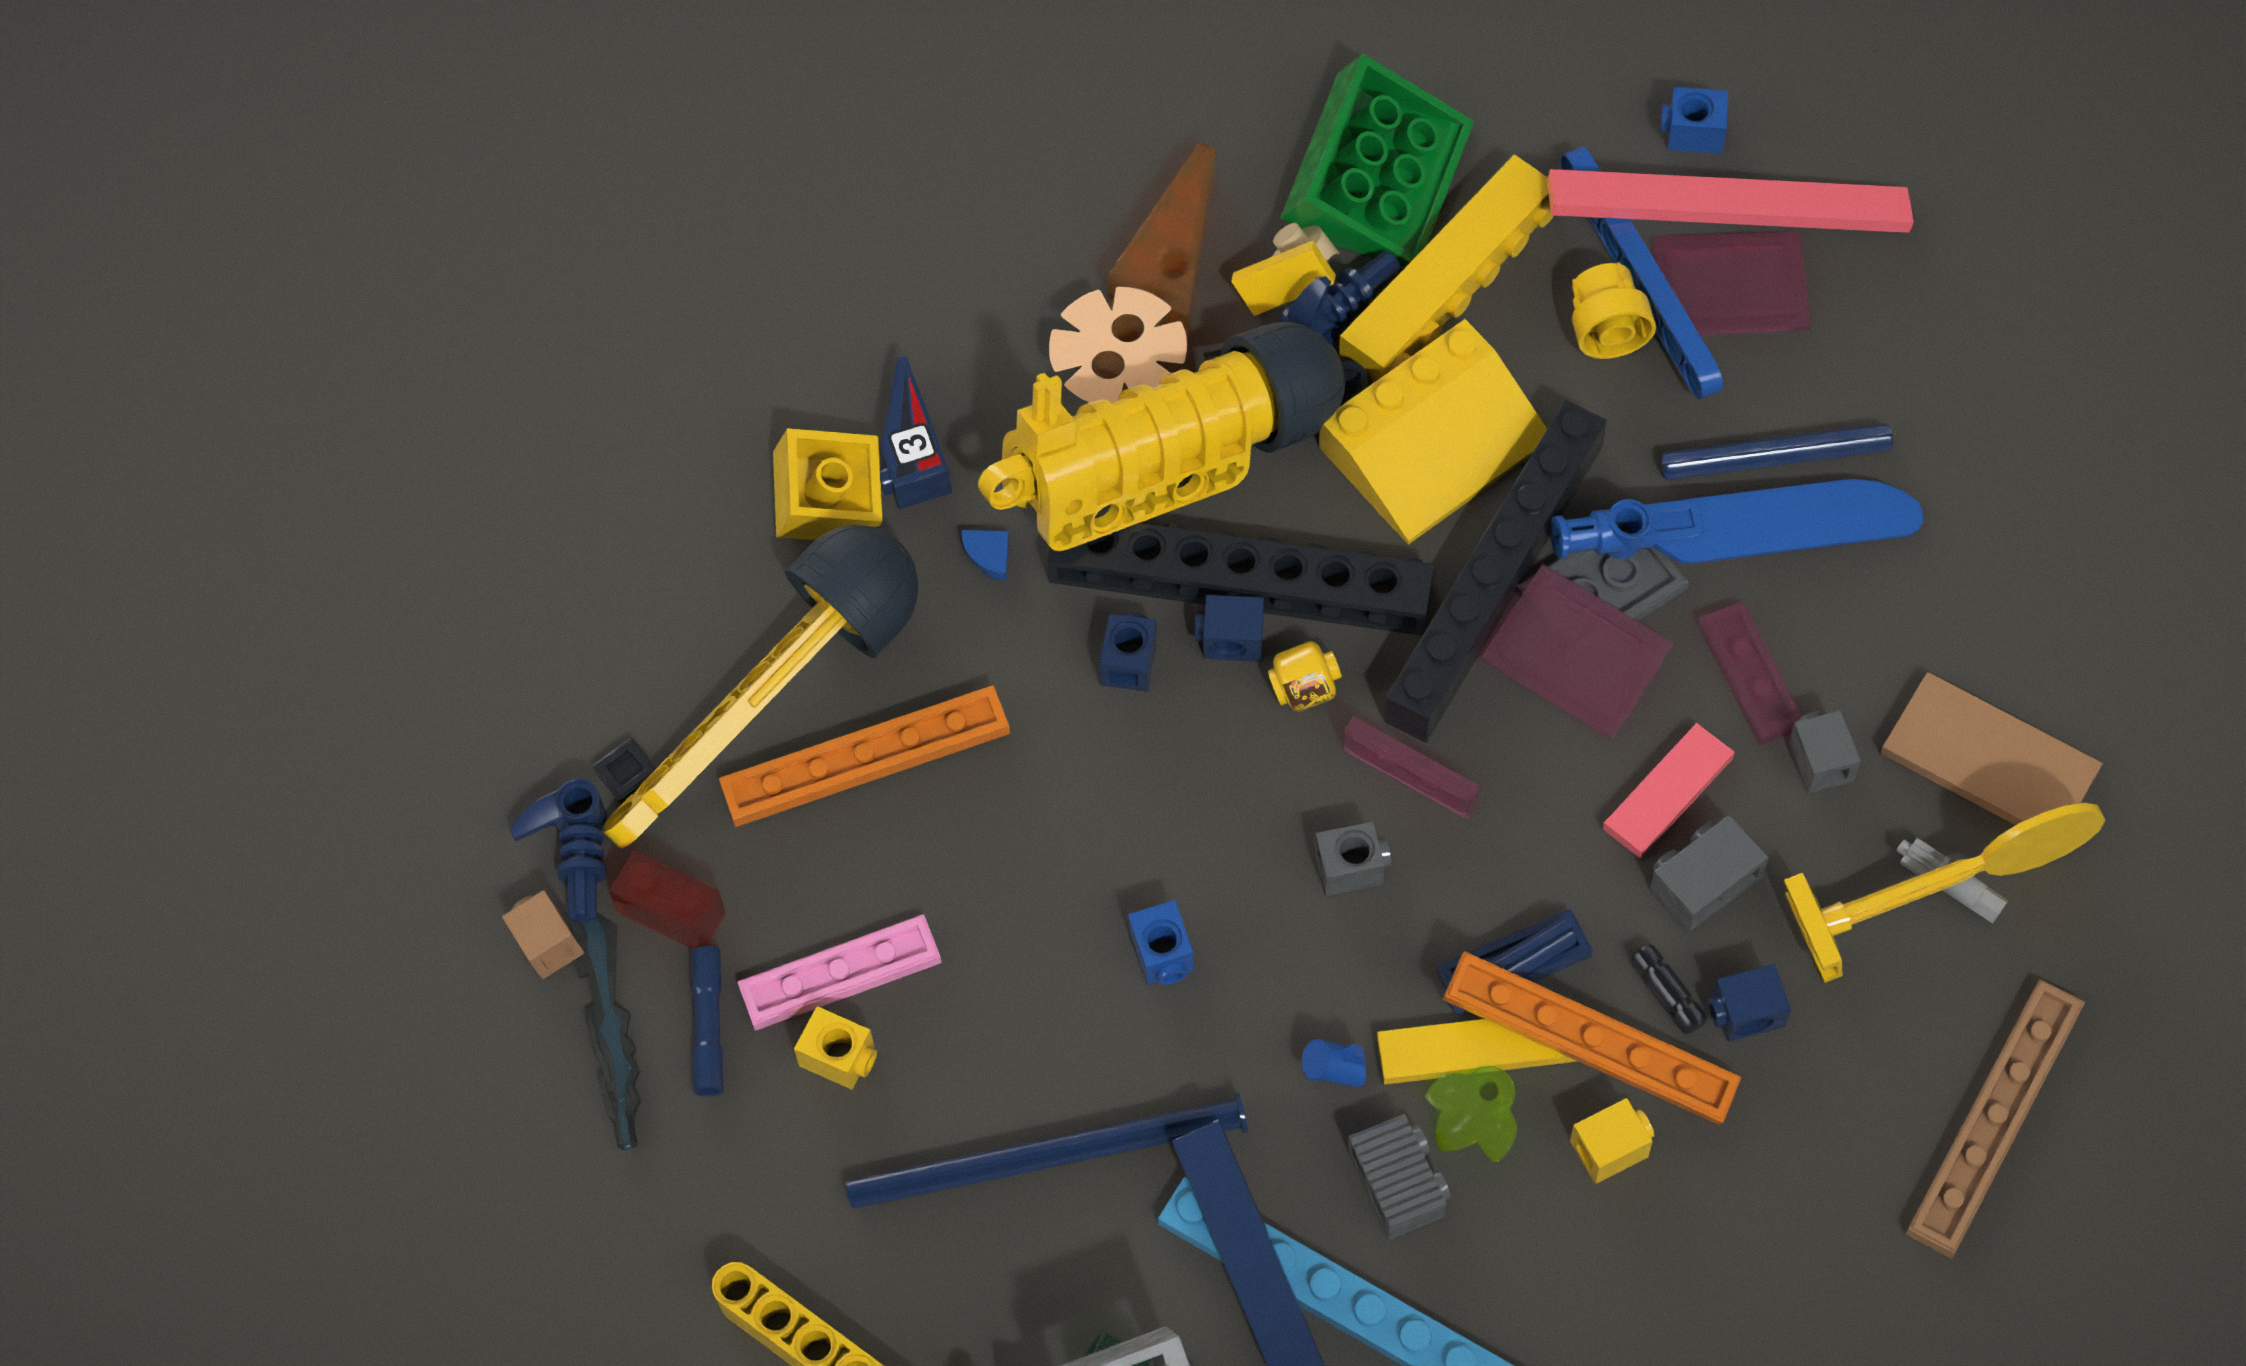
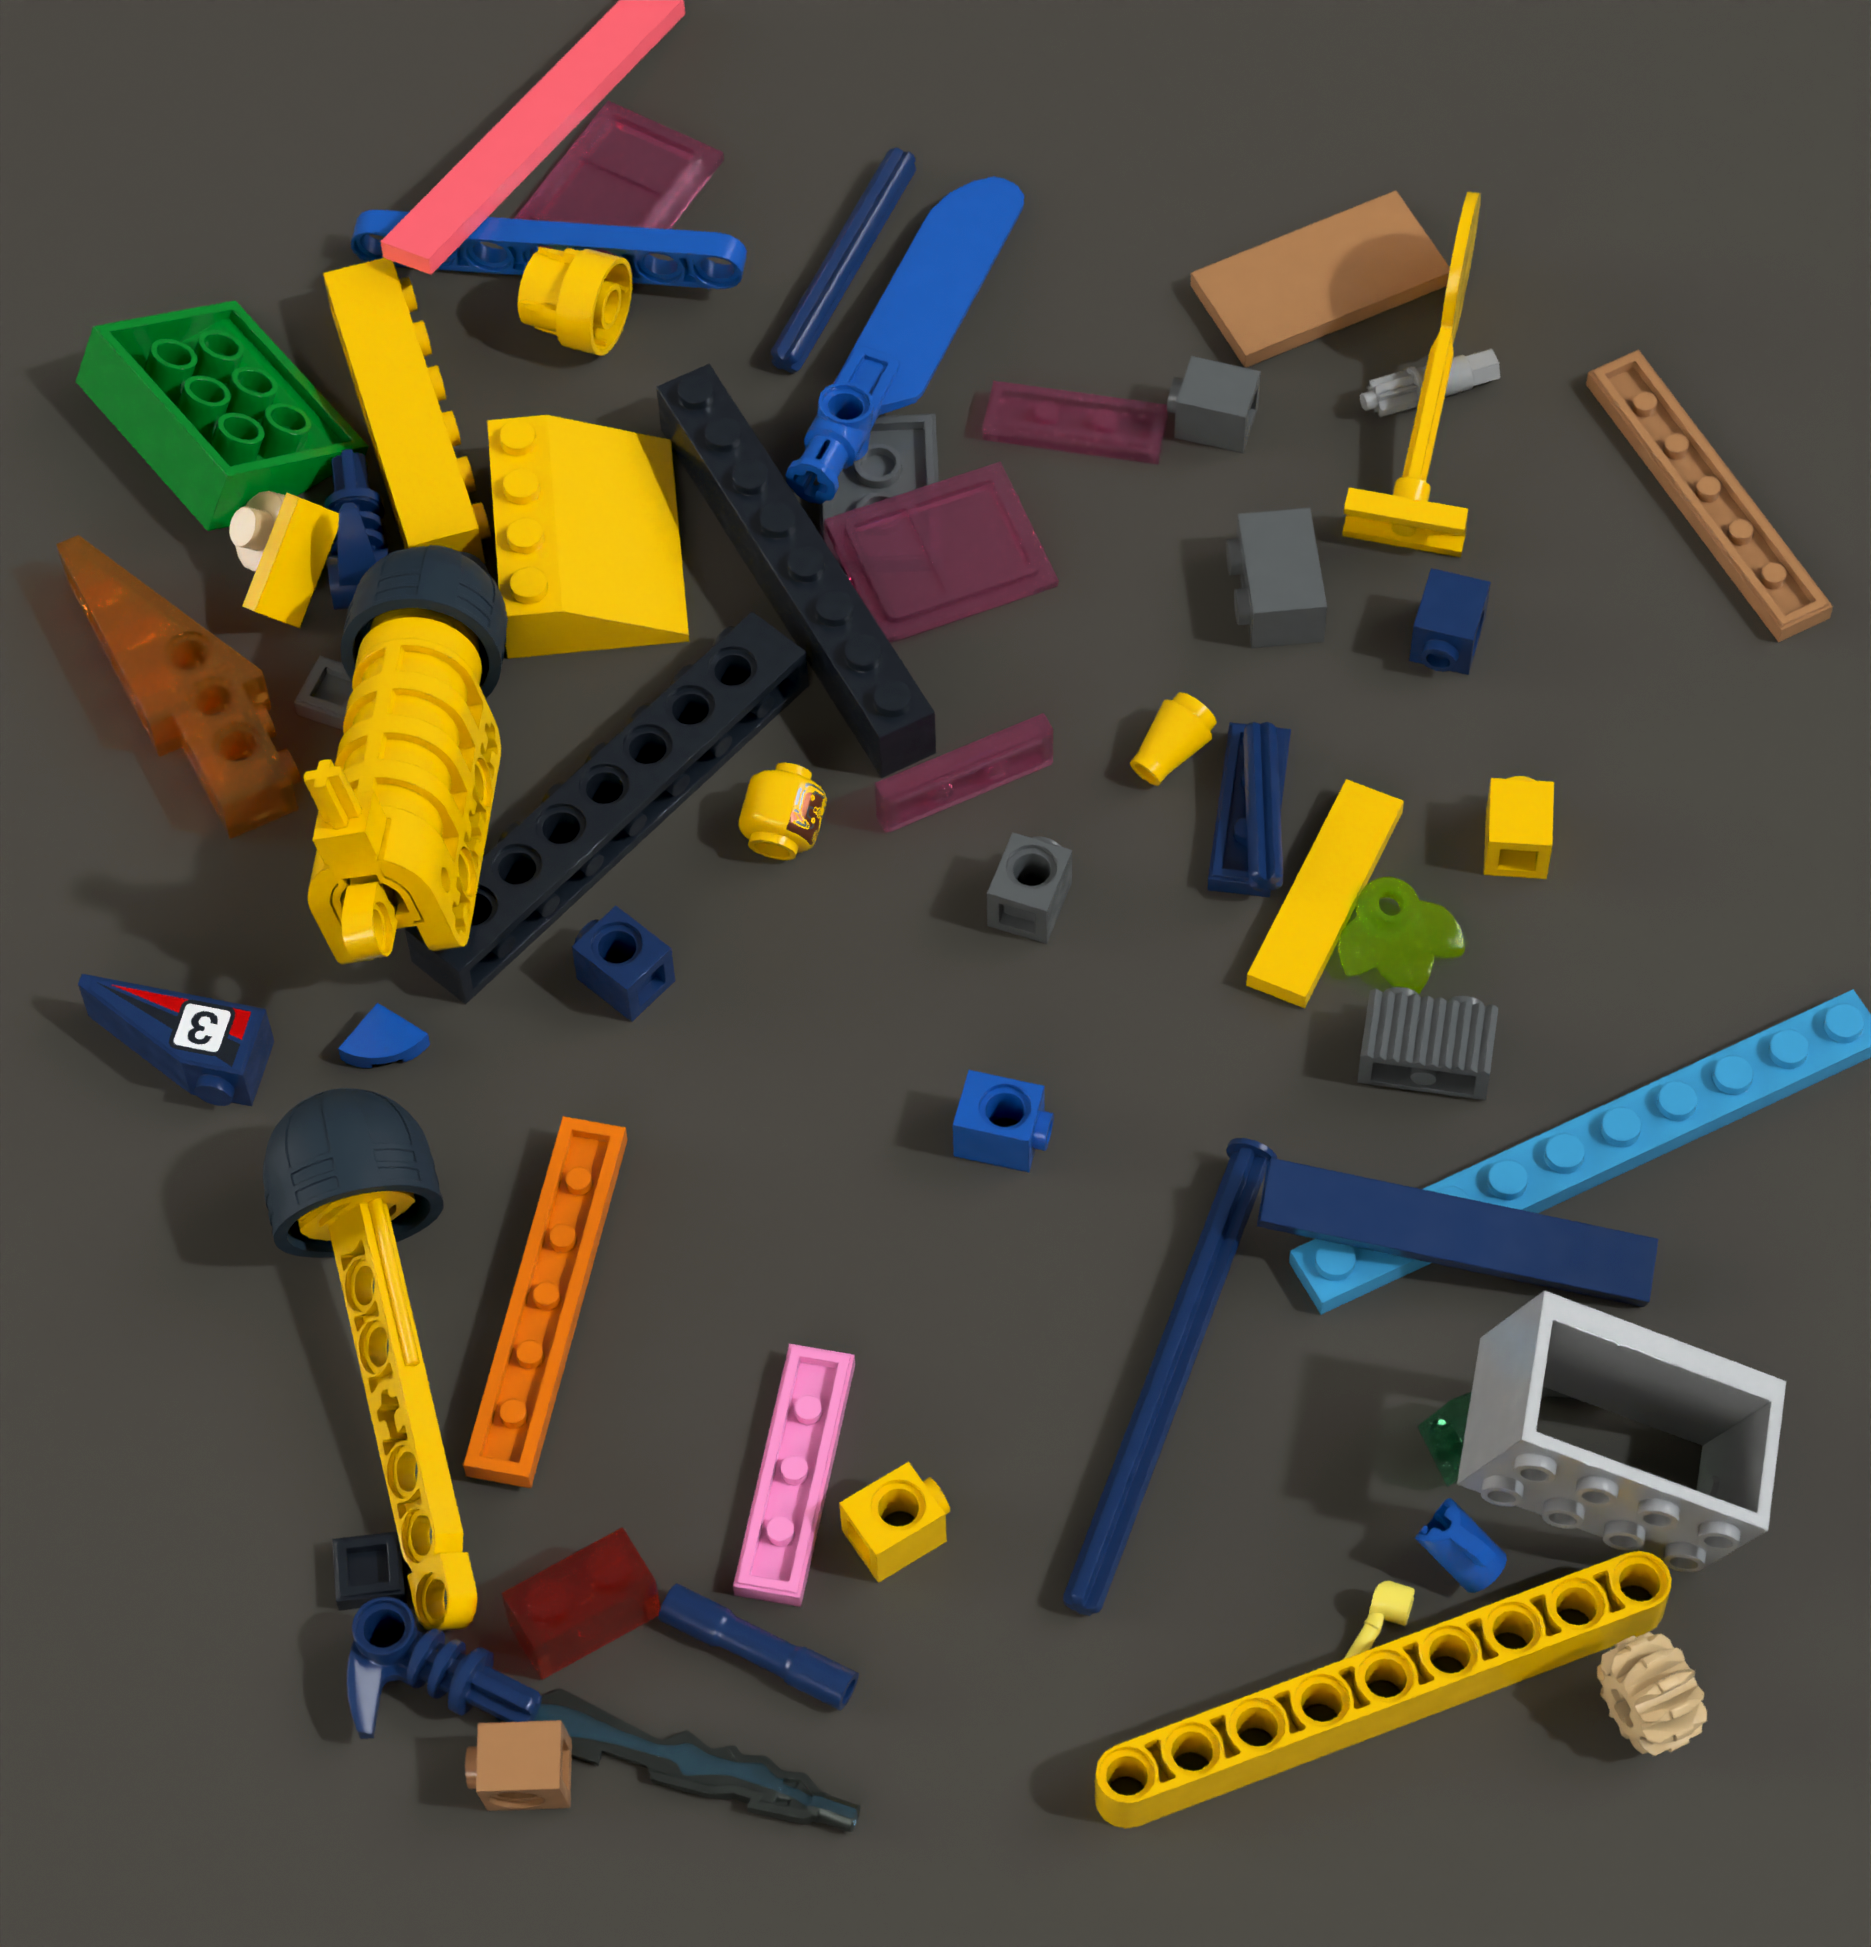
camera: 60 degrees left, 5 degrees down
(825, 482) = (173, 1151): yellow slope -> none
(1094, 321) = (219, 793): light nougat piece -> none
(1231, 628) = (672, 847): dark blue brick -> none
(1334, 1063) = (1259, 1029): blue piece -> none
(1532, 880) = (1174, 736): none -> yellow cone
(1592, 1038) = (1393, 779): orange tile -> none
(1668, 790) = (1156, 565): coral tile -> none
(1668, 989) = (1379, 688): black axle -> none
(1703, 135) = (410, 106): blue brick -> none

